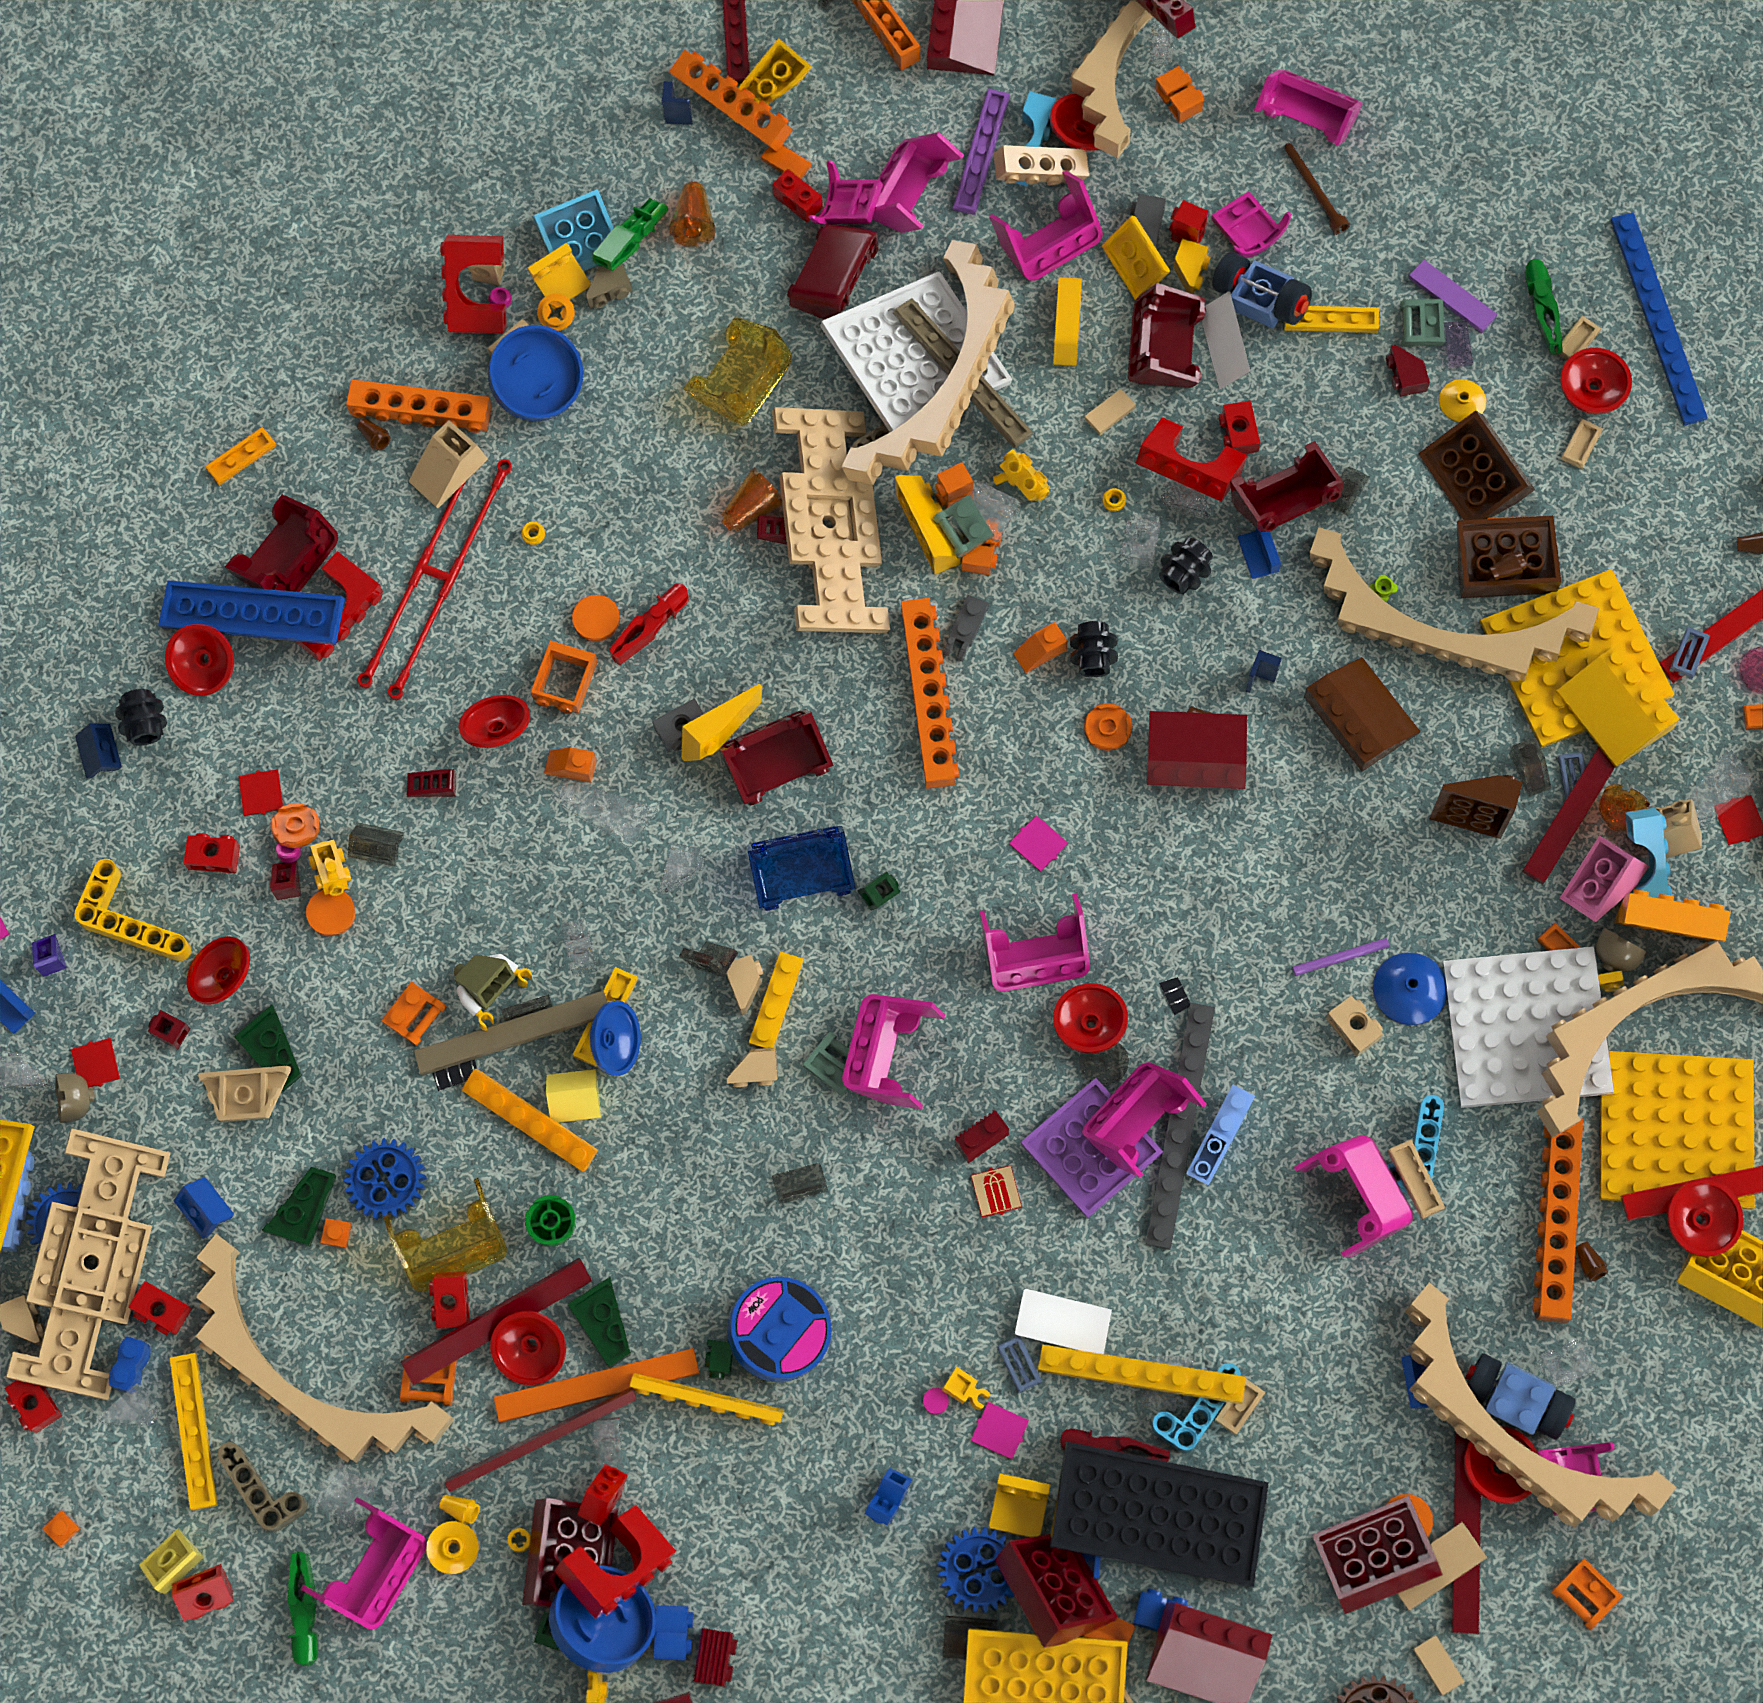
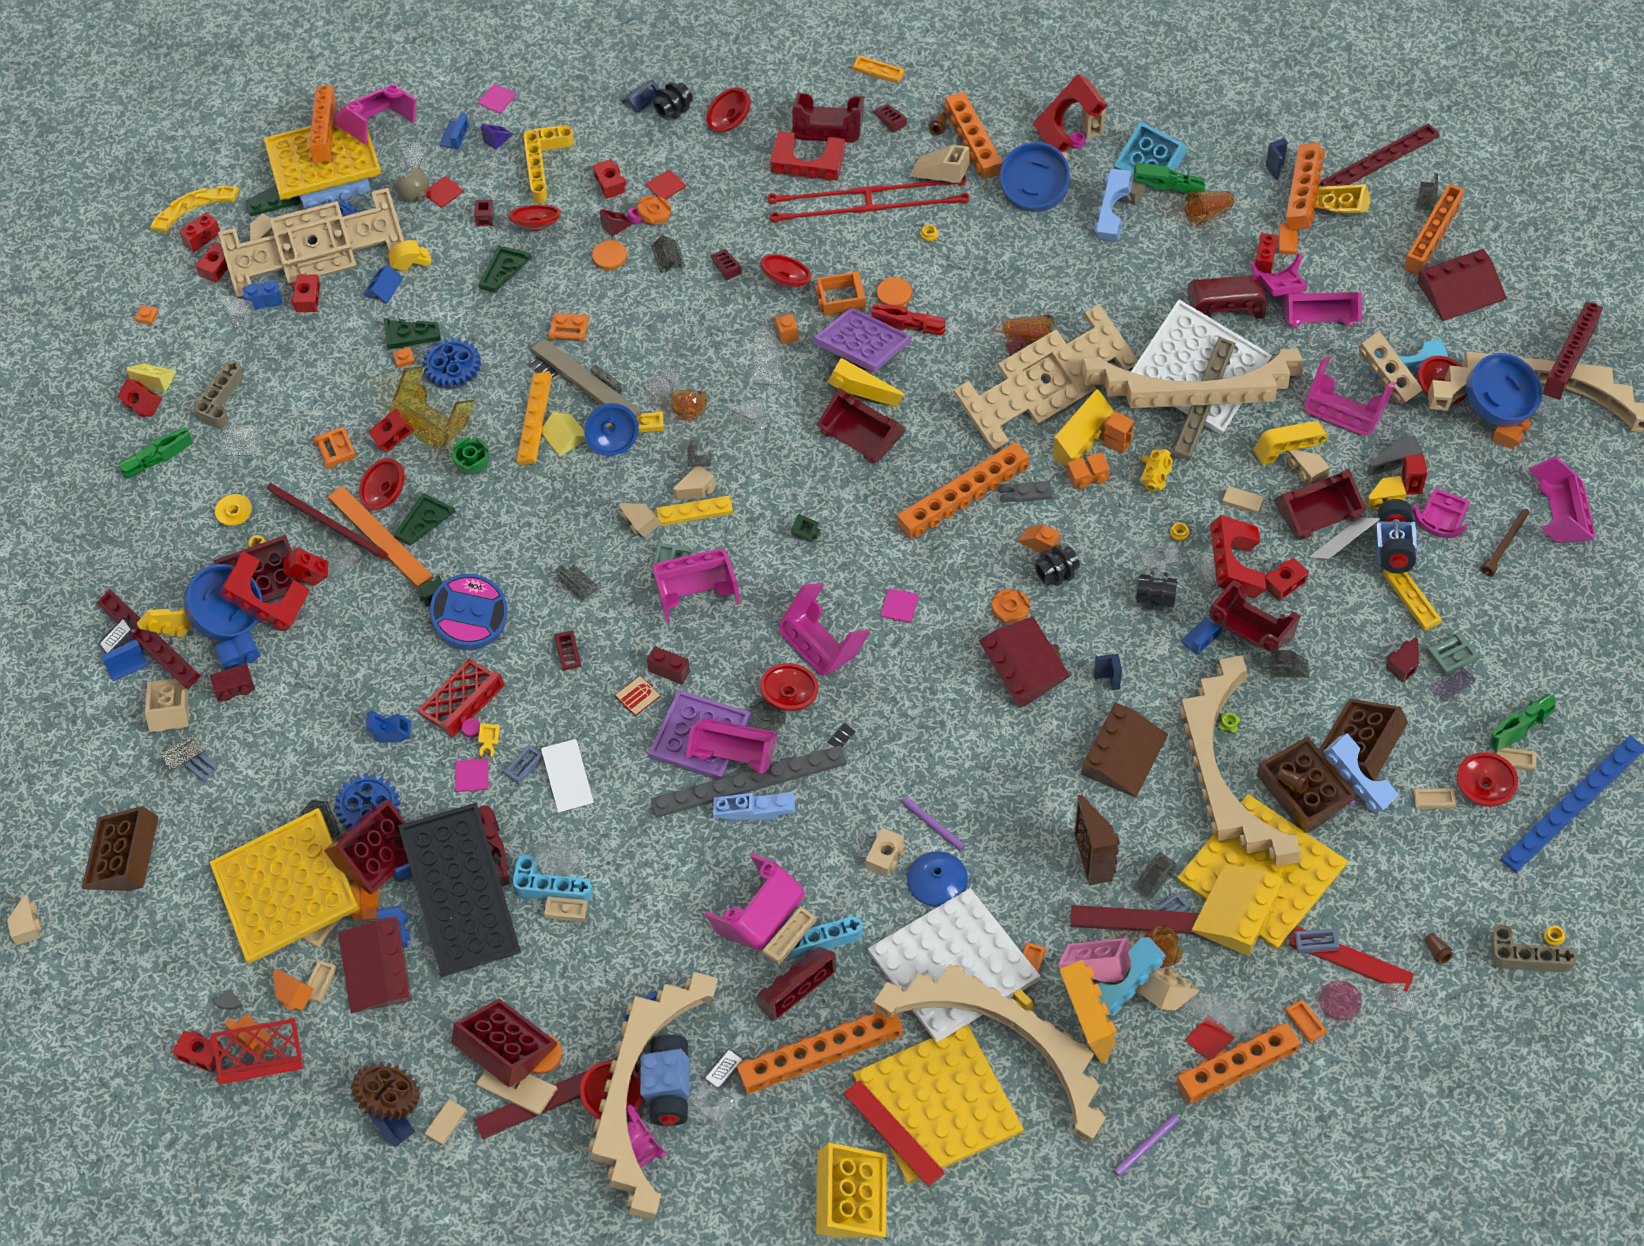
camera: 60 degrees right, 15 degrees down
(180, 1154) = (406, 254): none -> yellow brick
(193, 1432) = (239, 347): yellow plate -> none
(245, 1092) = (466, 267): tan wing -> none
(253, 611) = (775, 118): blue plate -> none
(328, 863) = (635, 237): yellow brick -> none
(335, 488) = (892, 125): none -> dark red slope
(345, 1429) = (305, 337): tan arch -> none
(380, 1572) = (200, 484): dark pink windscreen -> none
(460, 1508) = (261, 503): yellow cone -> none
(480, 1329) = (374, 452): dark red tile -> none
(484, 980) = (609, 347): olive torso -> none
(556, 301) = (1084, 165): light orange gear -> none
(559, 274) = (1112, 155): yellow bracket -> none
(625, 931) = (688, 404): none -> clear orange cylinder
(652, 333) = (1118, 185): none -> light blue arch
(653, 689) = (862, 339): none -> medium lavender plate
(716, 1401) = (402, 601): yellow plate -> none
(744, 372) = (1117, 289): clear yellow windscreen -> none
(800, 866) = (792, 475): clear blue windscreen -> none
(879, 1247) = (565, 636): none -> dark red slope
(906, 1385) = (471, 703): none -> red fence
(971, 523) = (1096, 448): sand green plate -> none
(981, 151) = (1394, 336): medium lavender tile -> none
(995, 507) = (1114, 459): clear bracket -> none
(1019, 1506) = (423, 803): yellow bracket -> none
(1109, 321) = (1309, 466): none -> tan slope
(1135, 257) = (1367, 455): yellow tile -> none
(1142, 1374) = (554, 836): yellow plate -> none
(1145, 72) = (1503, 389): none -> blue brick
(1453, 296) = (1488, 664): medium lavender tile -> none
(1459, 409) = (1417, 714): yellow dish -> none
(1468, 1201) = (797, 982): none -> dark red slope
(1506, 499) = (1344, 756): none -> light blue arch
(1527, 1331) = (723, 1069): none -> tile
(1591, 1263) = (798, 1089): reddish brown cone -> none
(1593, 1588) = (554, 1200): orange plate -> none
(1618, 952) = (1046, 994): dark tan cylinder -> none
(1720, 1216) = (868, 1124): red dish -> none

